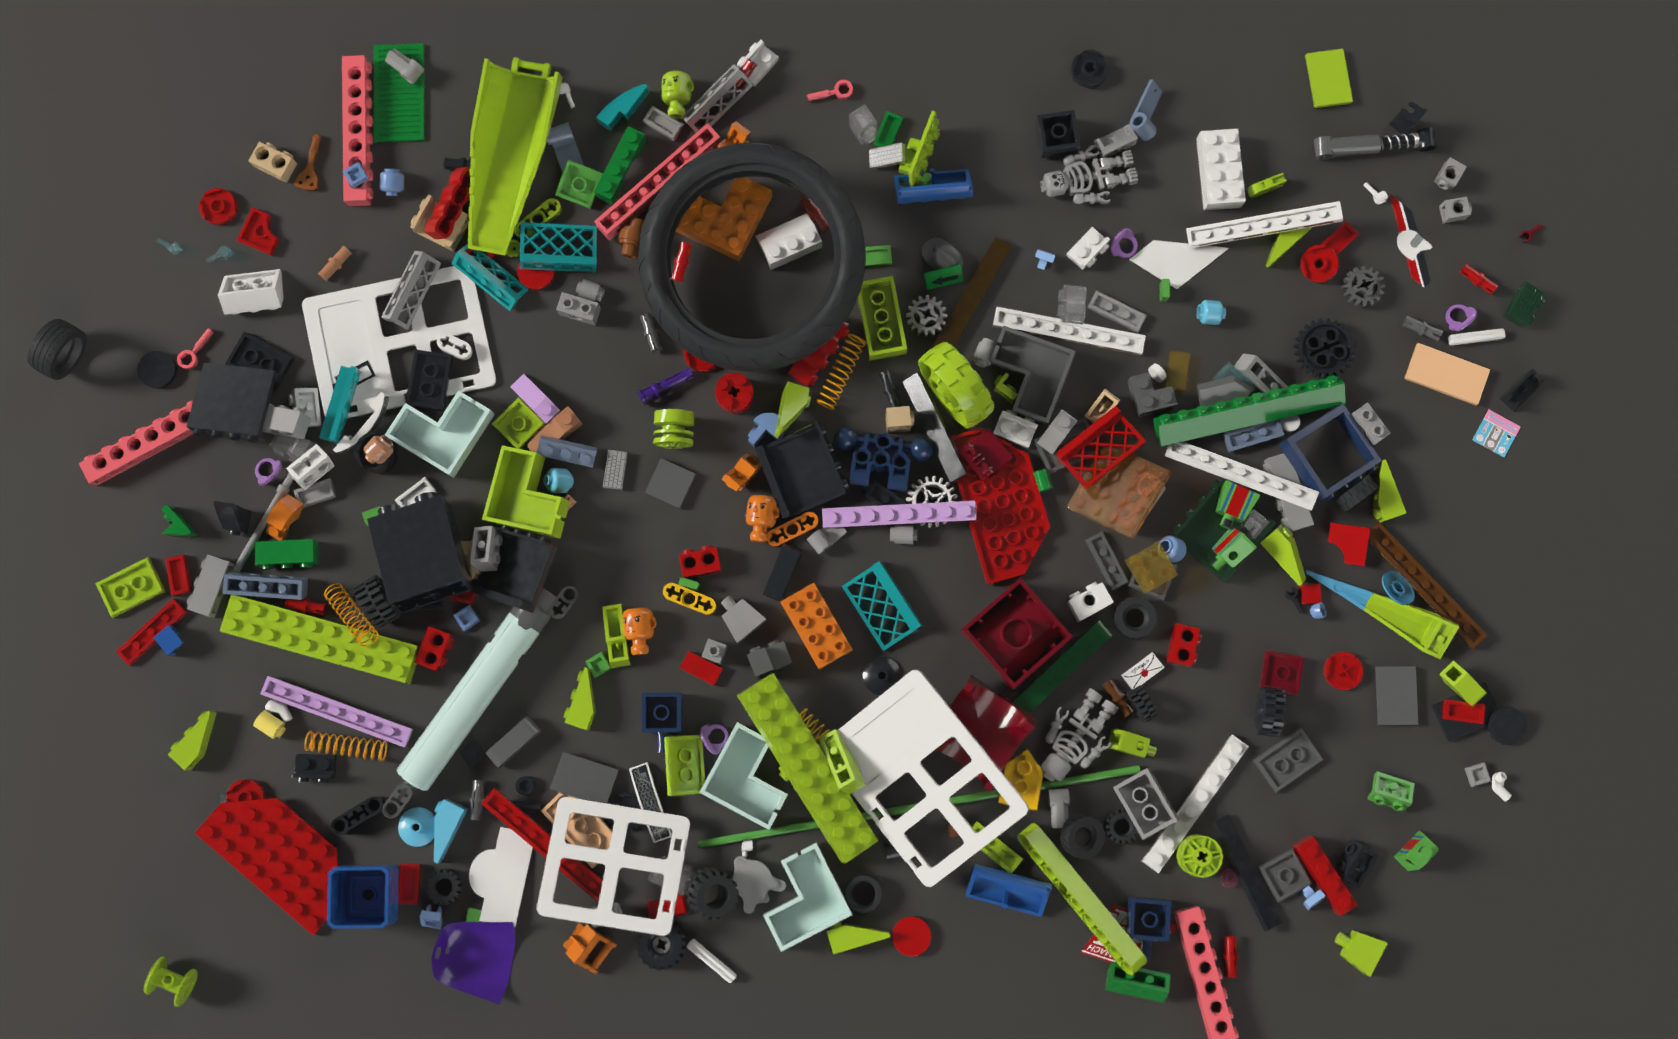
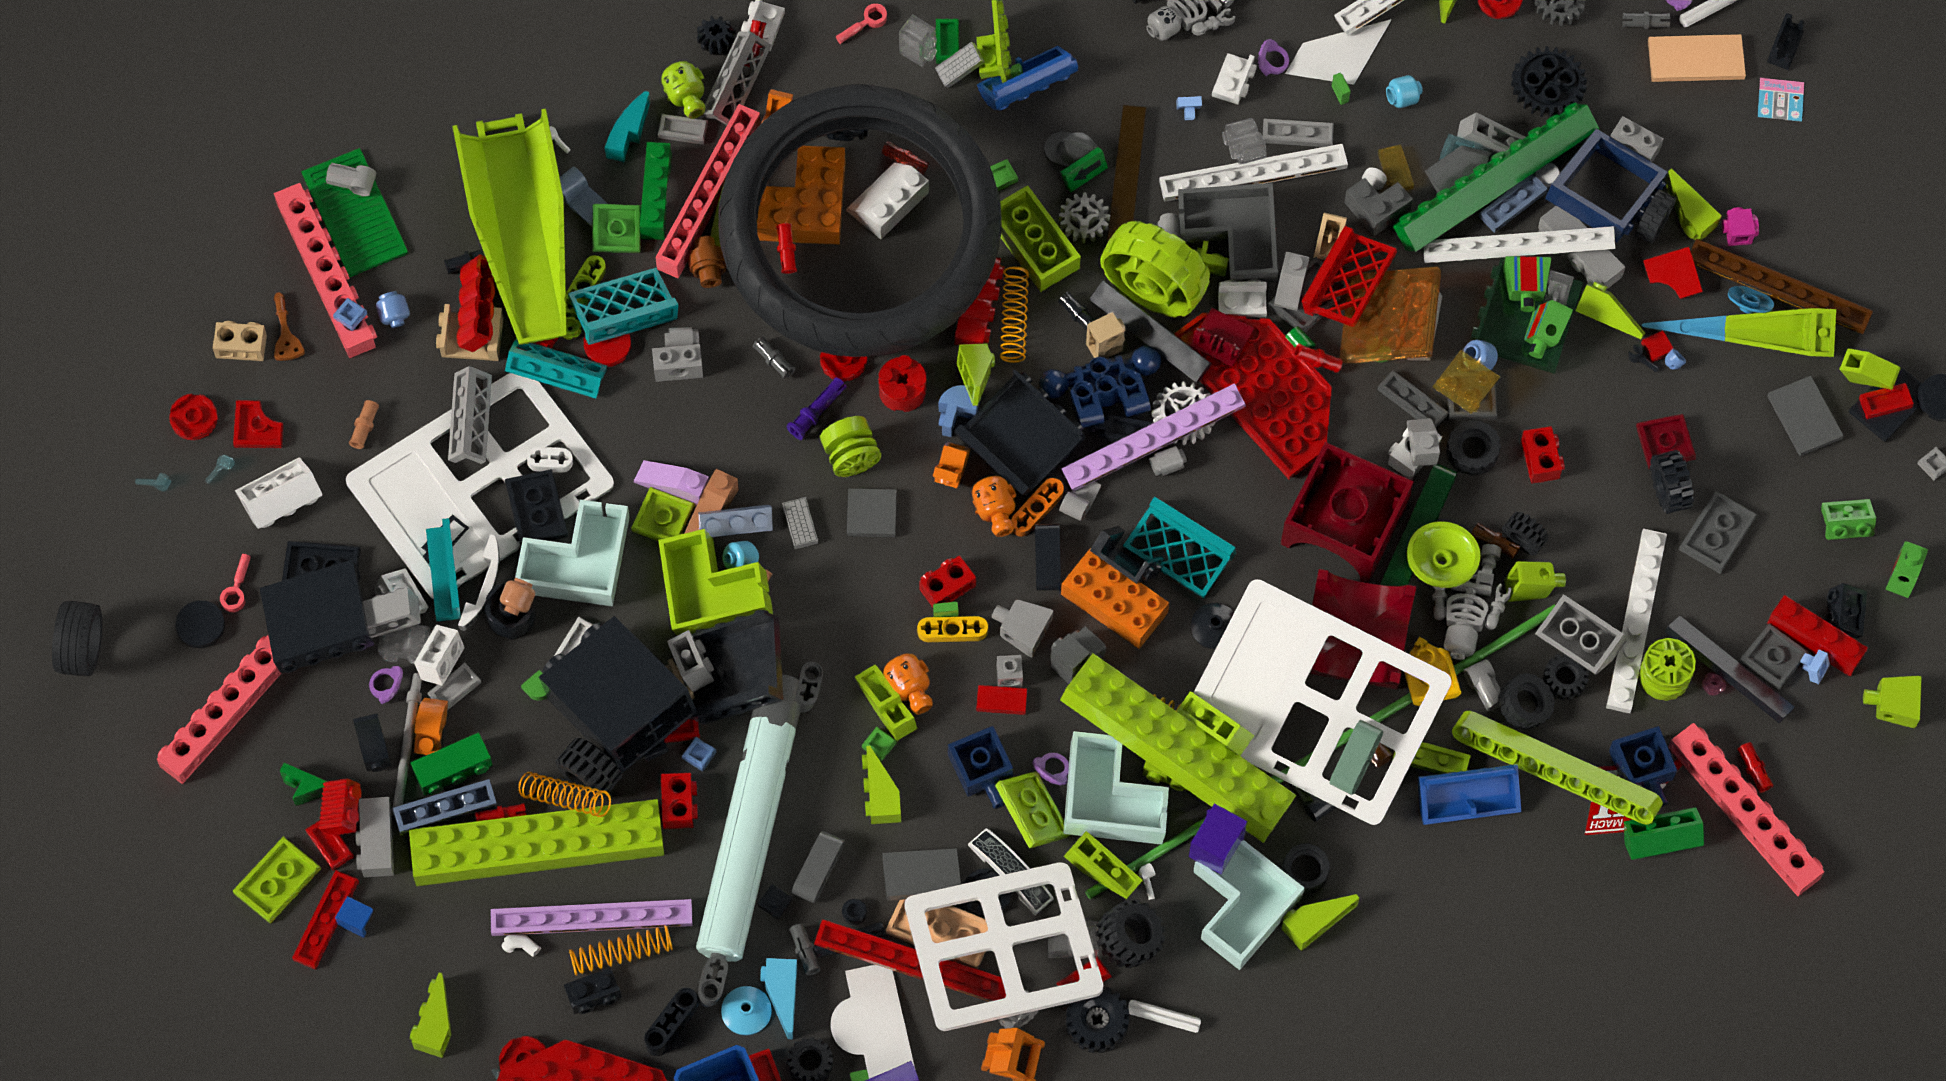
camera: 25 degrees left, 15 degrees down
(190, 555) = (340, 806): none -> red brick
(269, 725) = (518, 963): light yellow brick -> none
(716, 831) = (1102, 865): none -> lime slope
(718, 52) = (716, 35): none -> black gear
(754, 882) = (1175, 907): light grey tile -> none
(801, 856) = (1217, 838): none -> dark purple piece
(833, 601) = (1106, 549): none -> black panel
(911, 936) = (1382, 894): red tile -> none
(932, 835) = (1356, 757): none -> sand green beam
(1049, 500) = (1317, 358): none -> red pin
(1084, 696) = (1443, 543): none -> lime dish
(1097, 601) = (1423, 442): none -> light grey slope
(1142, 671) = (1509, 501): white tile -> none
(1343, 671) = (1733, 413): red tile -> none
(1417, 525) = (1740, 226): none -> dark pink brick

